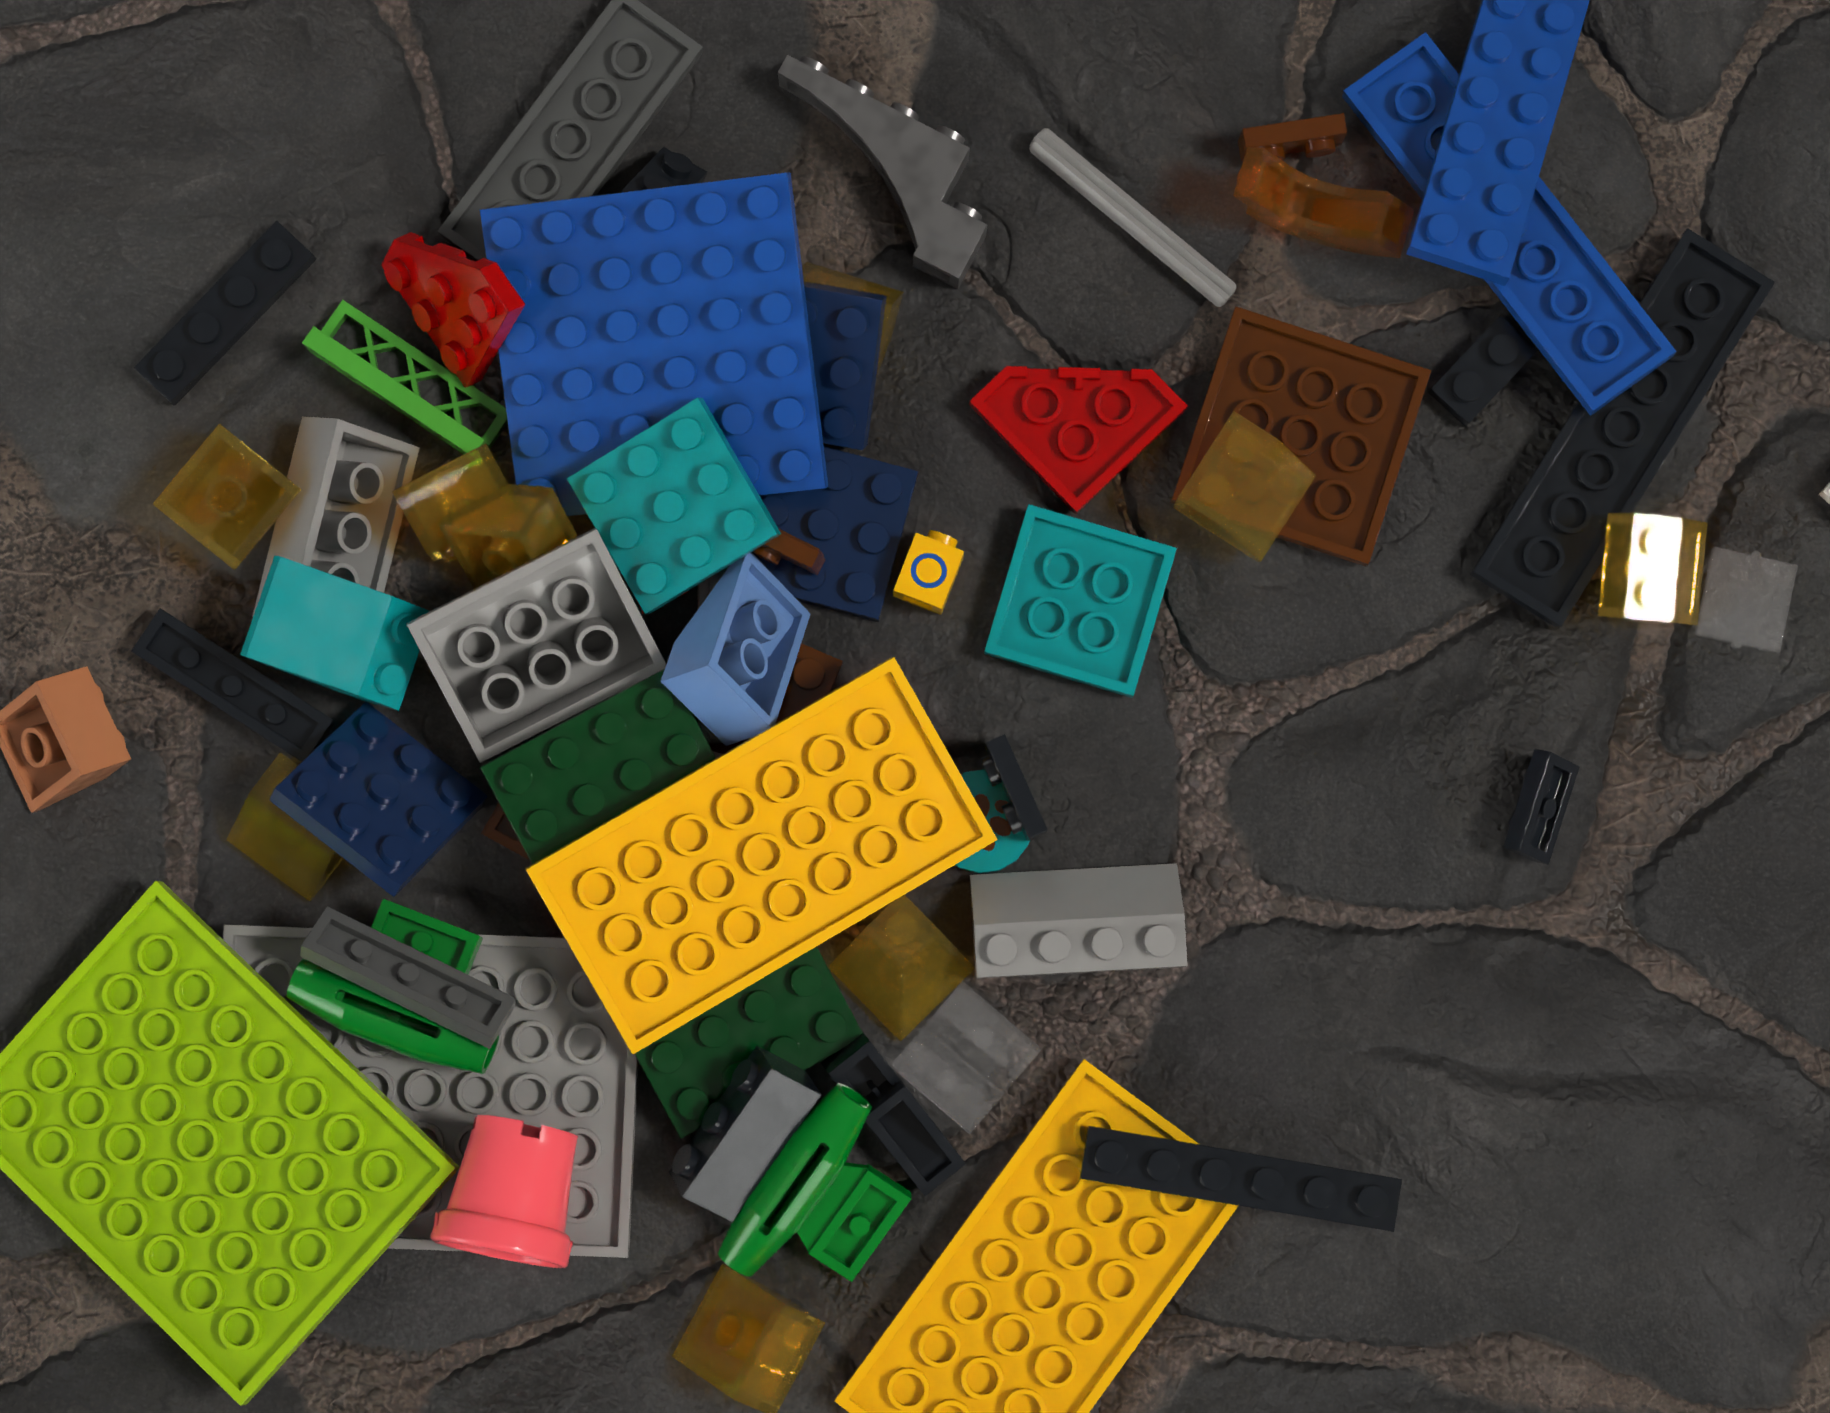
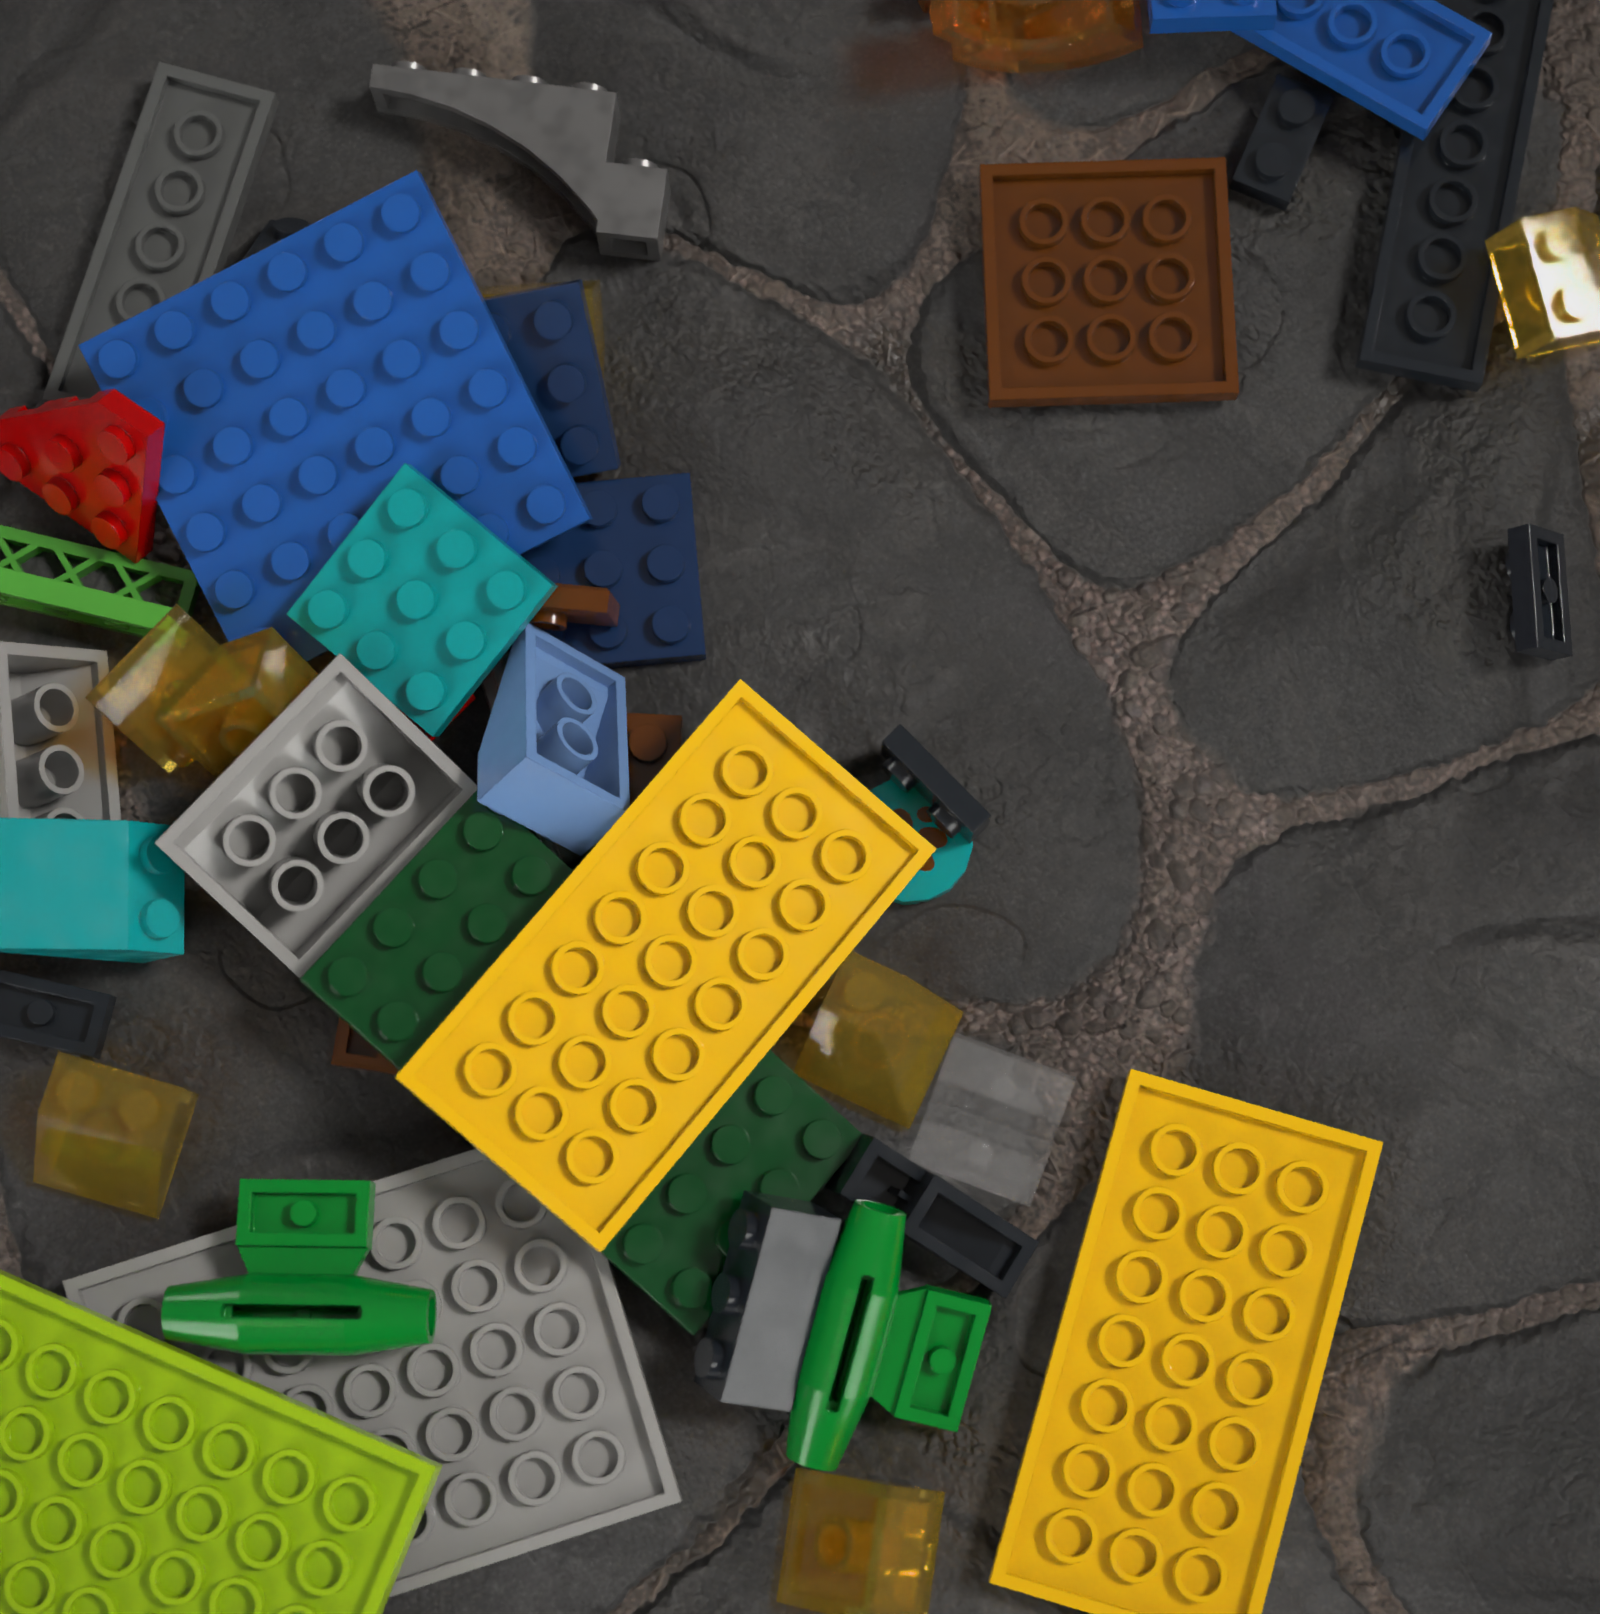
camera: 15 degrees left, 5 degrees down
(378, 798) = (193, 1064): dark blue plate -> none
(408, 977) = (300, 1259): dark grey plate -> none
(511, 1194) = (515, 1474): coral piece -> none
(929, 571) = (743, 579): yellow brick -> none
(1077, 422) = (850, 355): red plate -> none
(1078, 921) = (1063, 914): light grey slope -> none
(1080, 601) = (928, 551): teal plate -> none
(1132, 217) = (827, 112): light grey axle -> none
(1240, 1178) = (1366, 1139): black plate -> none
(1245, 487) = (1068, 352): clear yellow slope -> none

